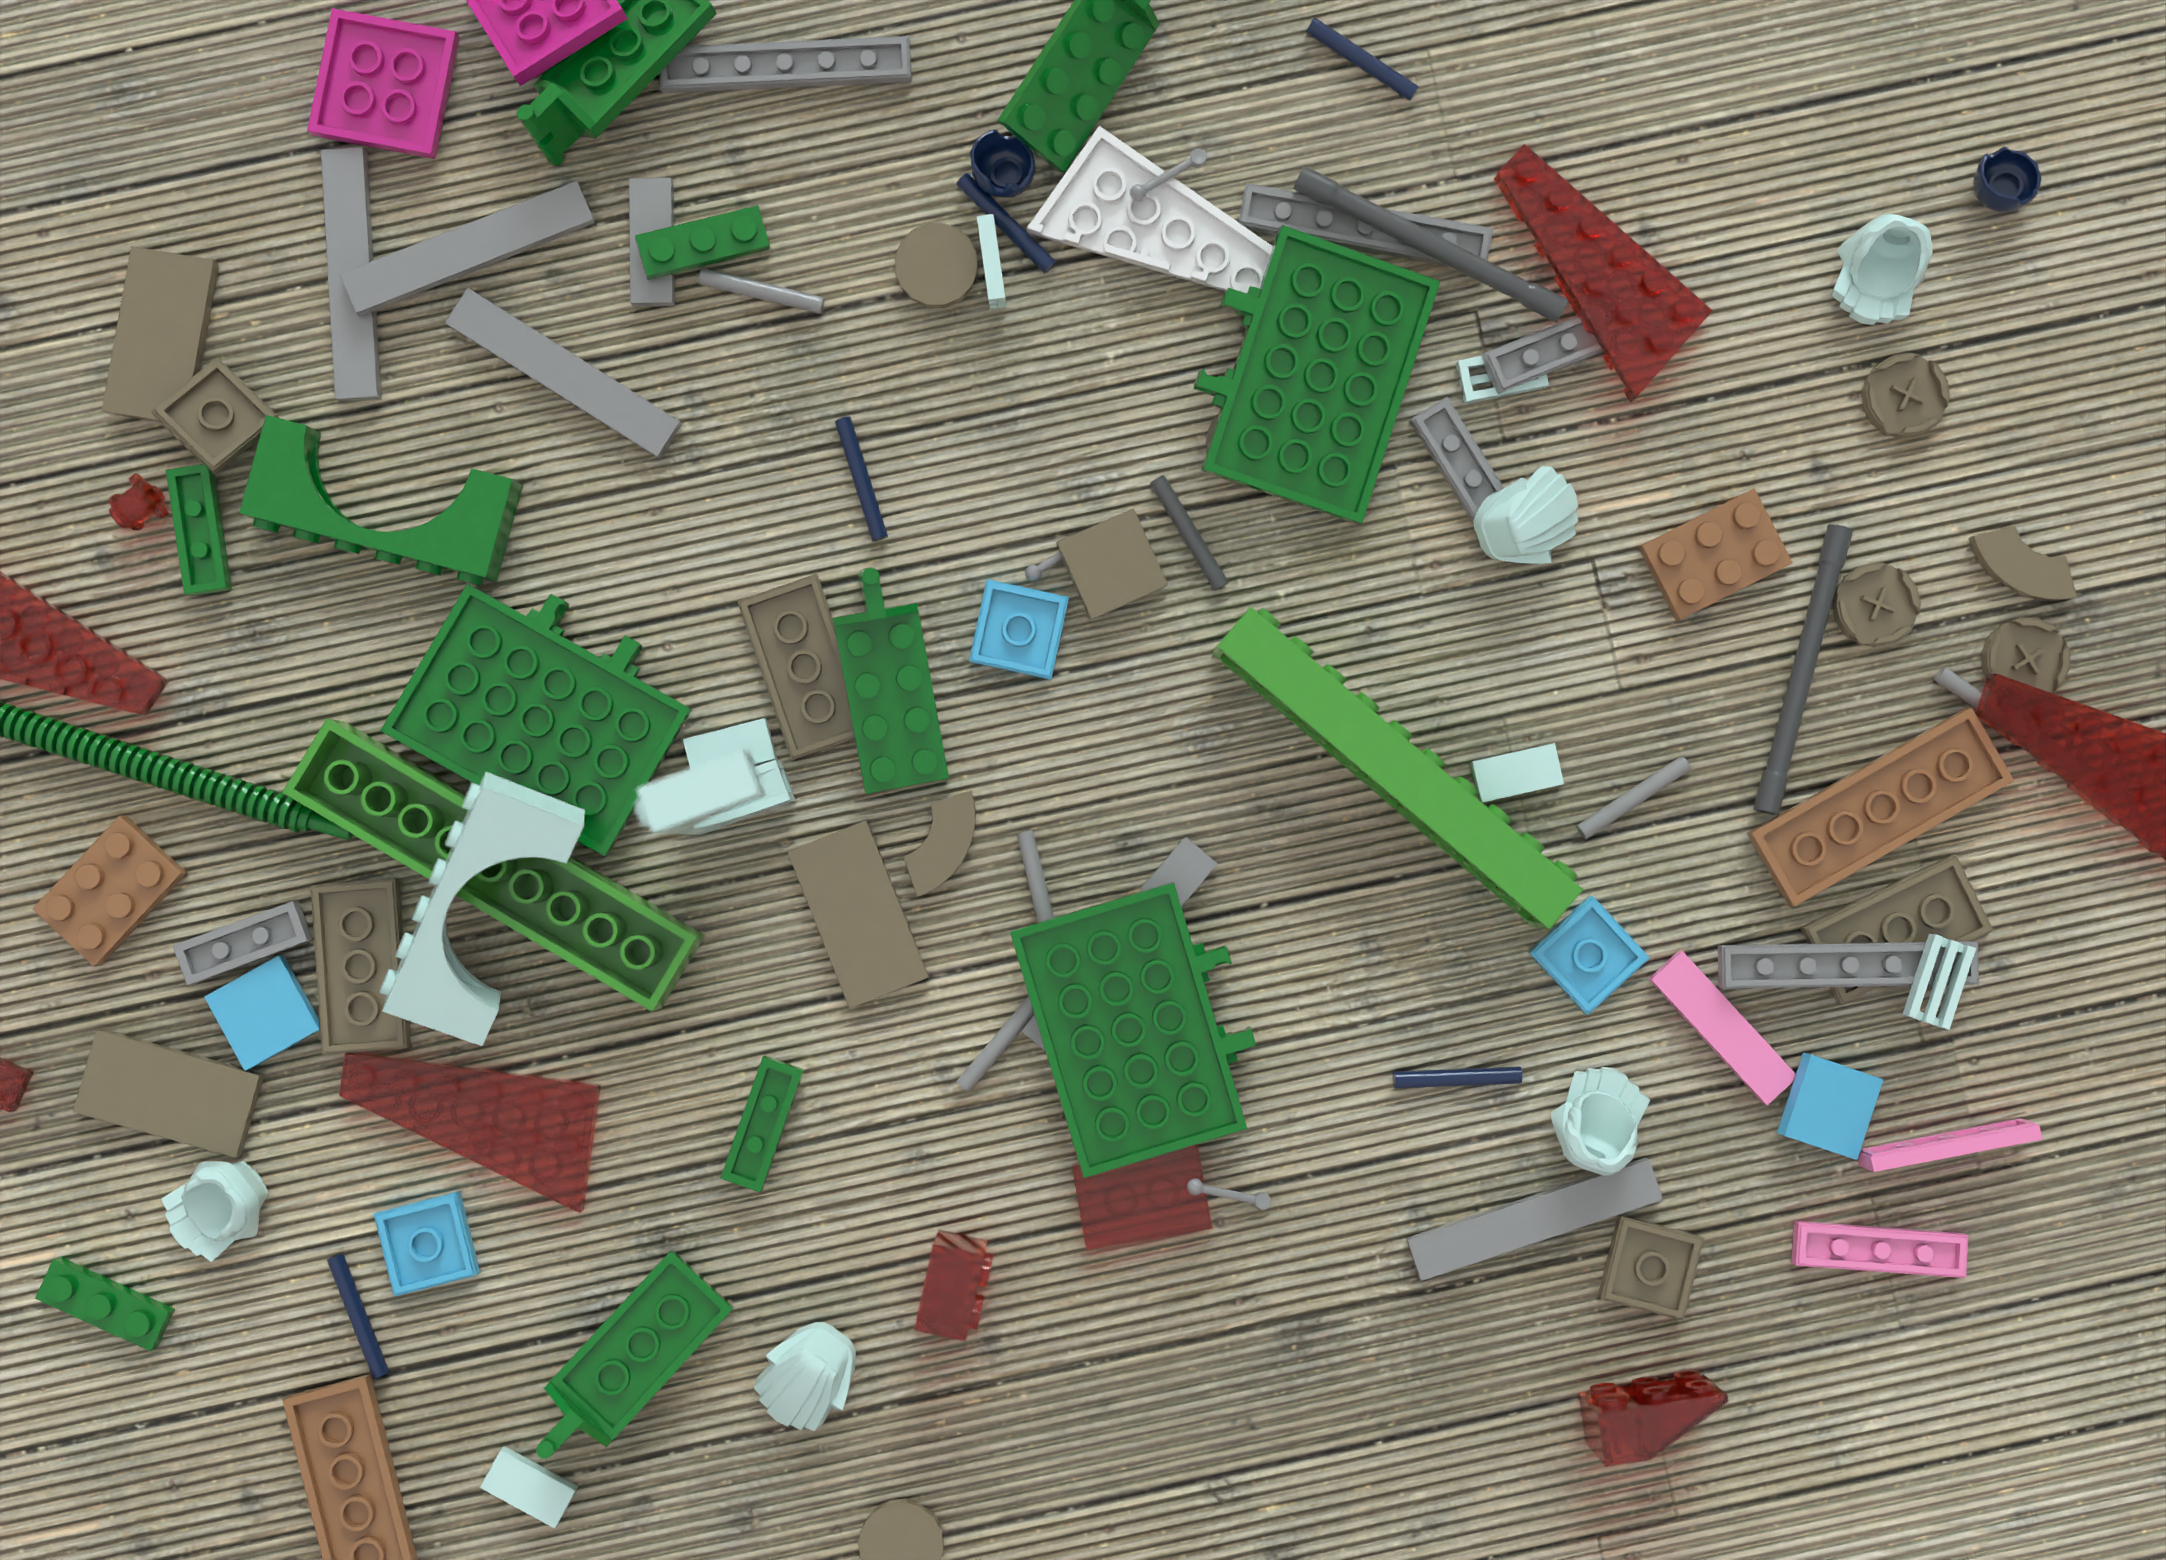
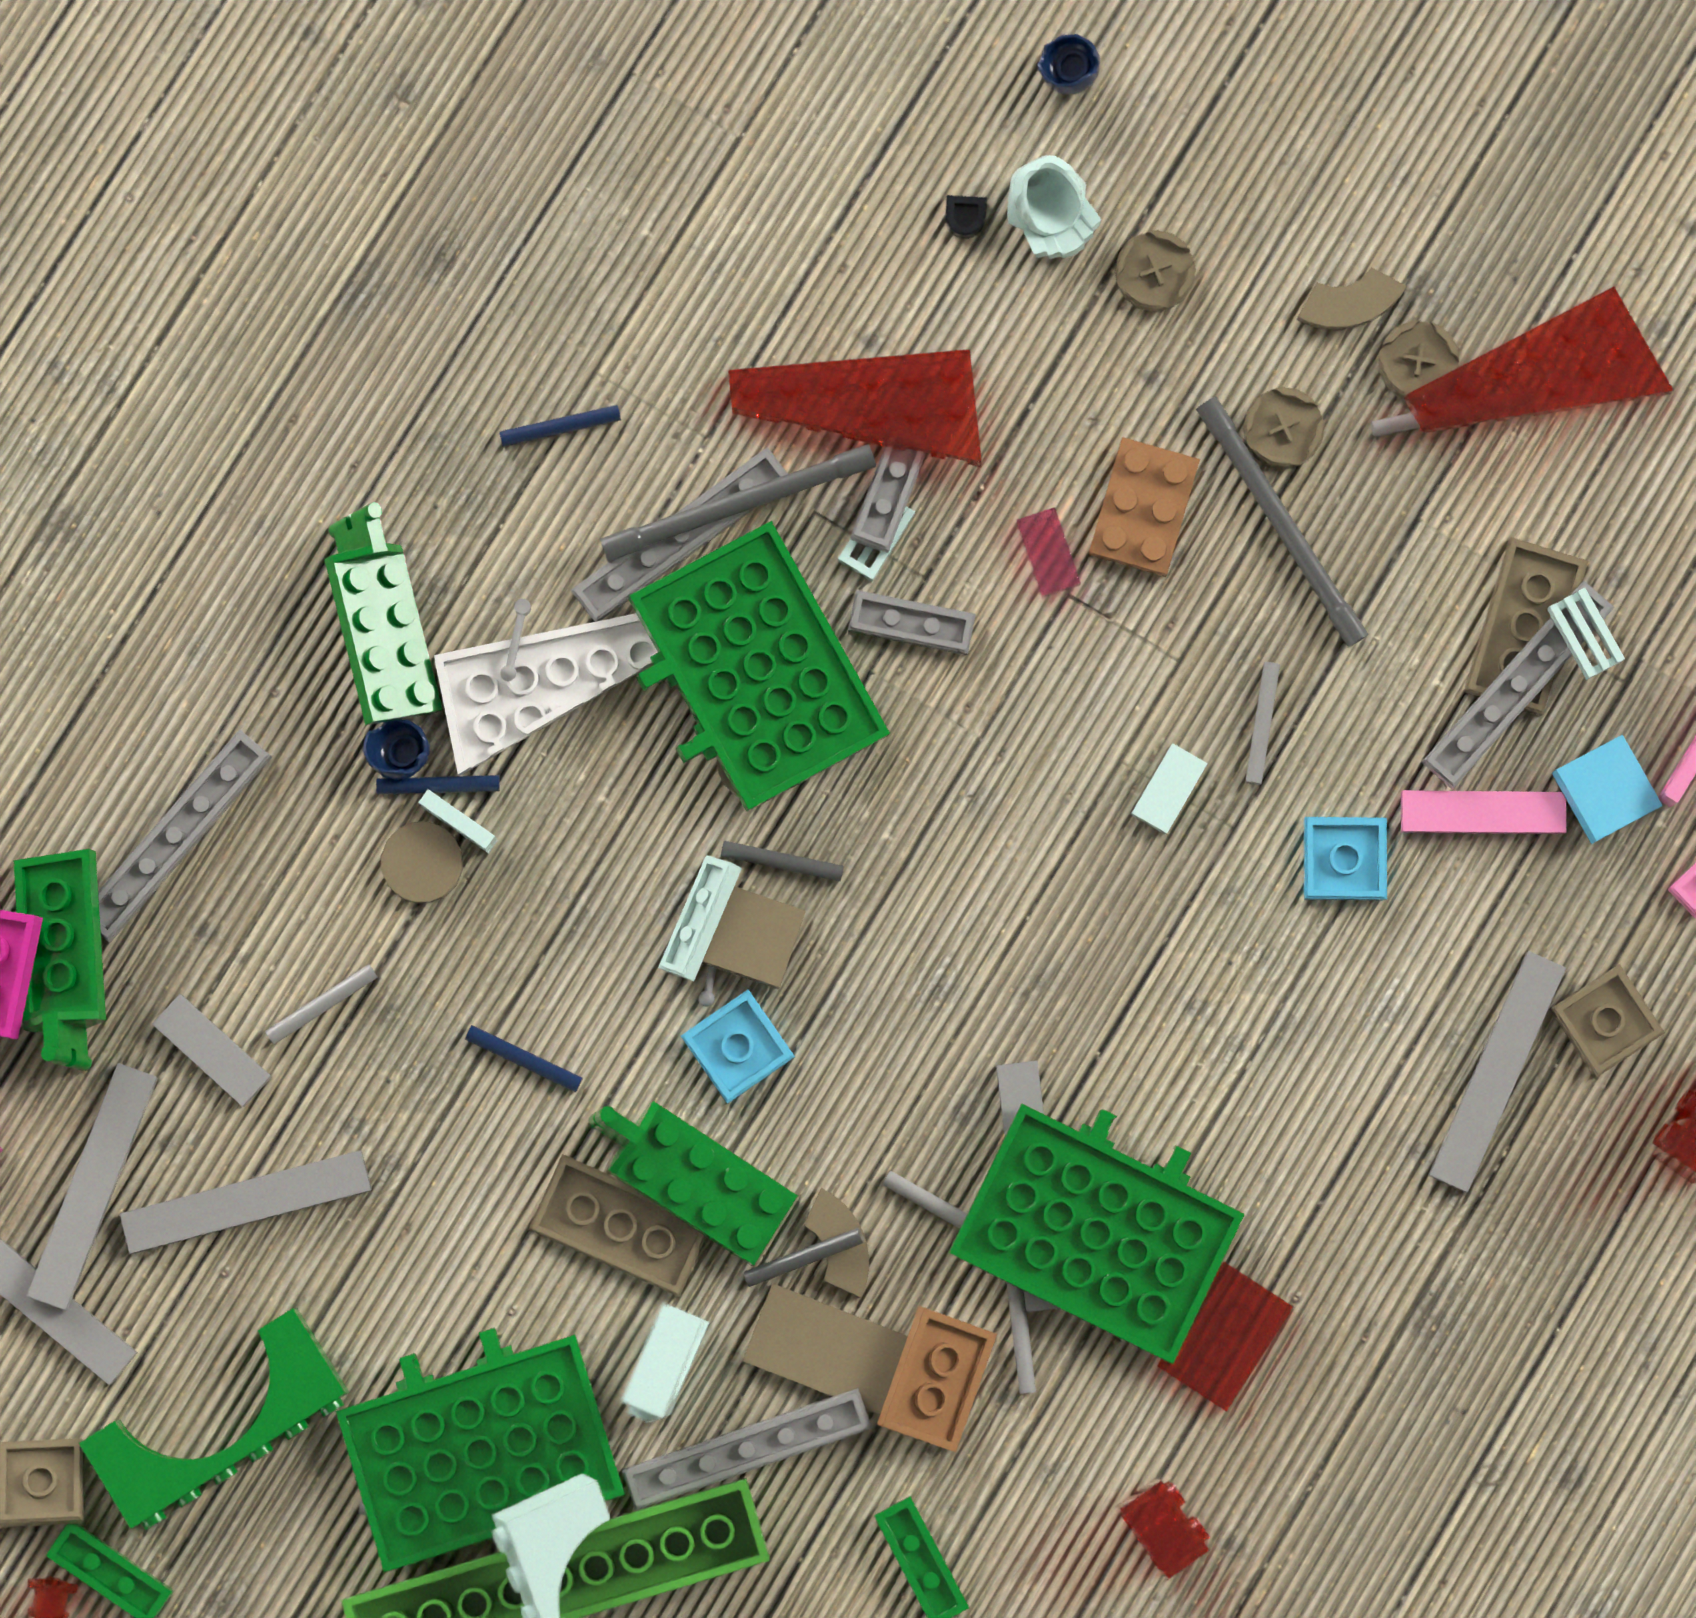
camera: 50 degrees left, 5 degrees down
(702, 242) = (248, 1014): green plate -> none
(725, 916) = (747, 1448): none -> light grey tile
(749, 736) = (628, 1335): light aqua tile -> none
(907, 825) = (804, 1257): none -> dark grey bar
(907, 1010) = (937, 1379): none -> medium nougat plate
(1088, 510) = (700, 917): none -> light aqua tile
(1260, 1200) = (1306, 1255): light grey hinge -> none
(1398, 770) = (1086, 872): bright green brick -> none
(1457, 1077) = (1346, 1032): dark blue bar -> none
(1527, 518) = (996, 614): light aqua hair -> none
(1600, 1120) = (1468, 959): light aqua hair -> none
(1611, 515) = (1048, 552): none -> clear pink tile
(1812, 212) = (965, 215): none -> black tile
(1880, 807) = (1428, 558): medium nougat plate -> none

